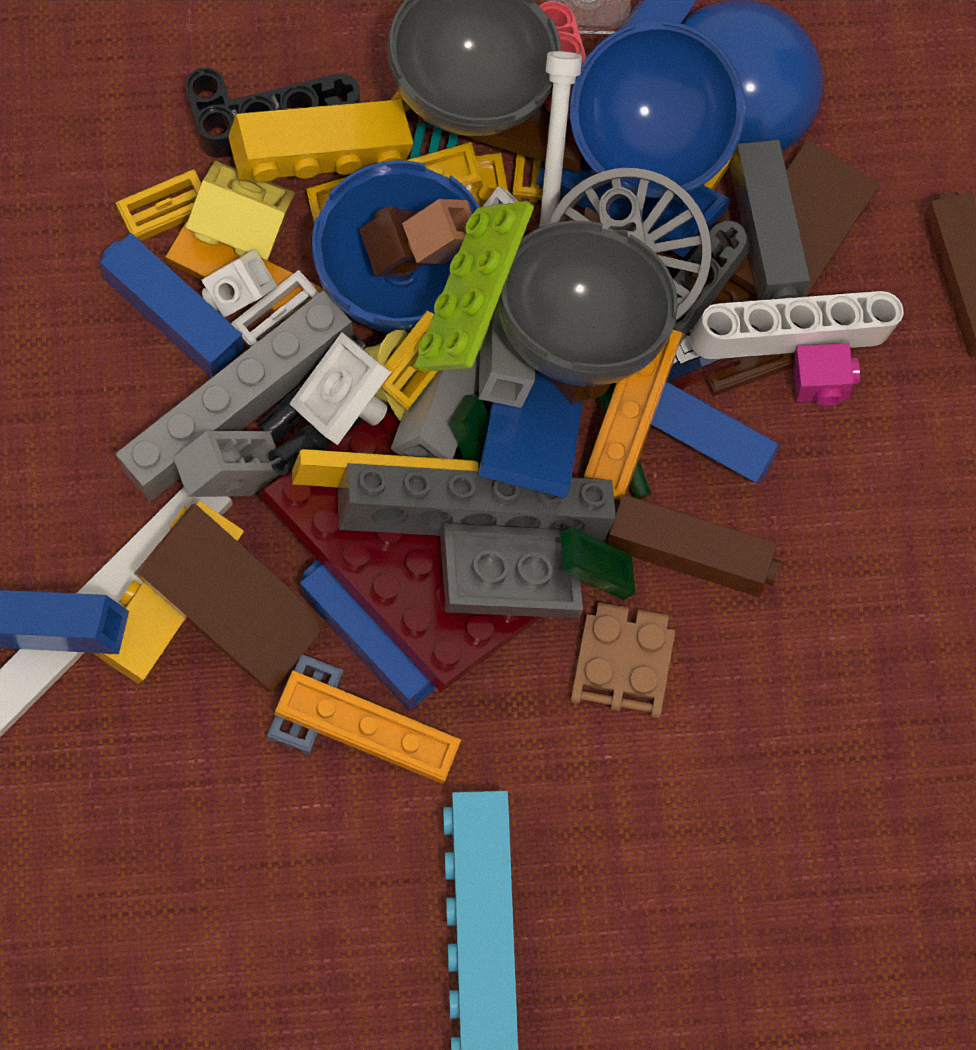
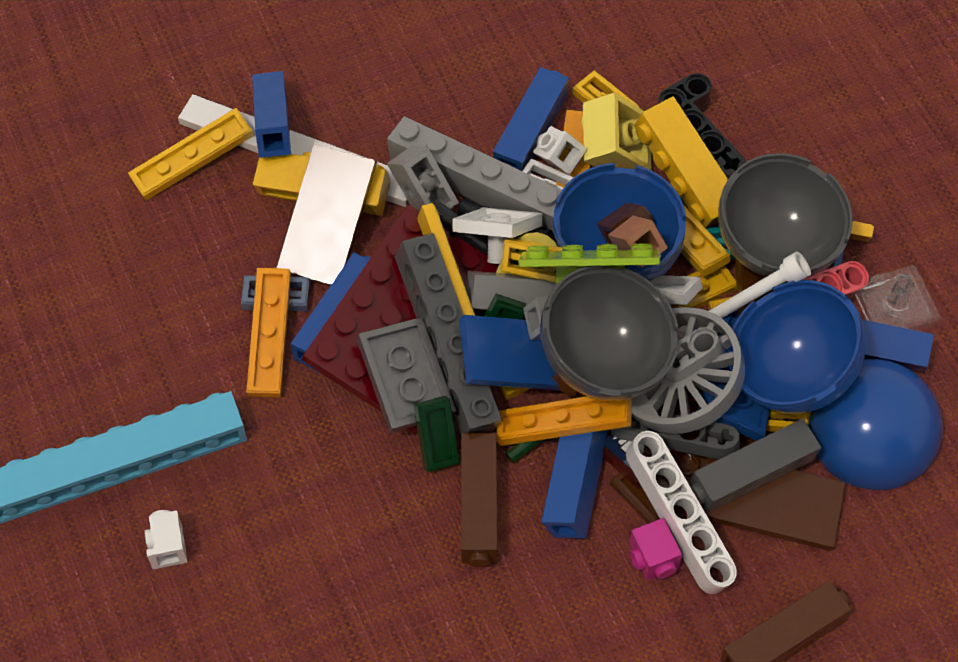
camera: 75 degrees right, 10 degrees down
(46, 752) = (191, 154): none -> yellow tile
(622, 932) = (165, 540): none -> white brick
(624, 658) = (378, 482): medium nougat plate -> none

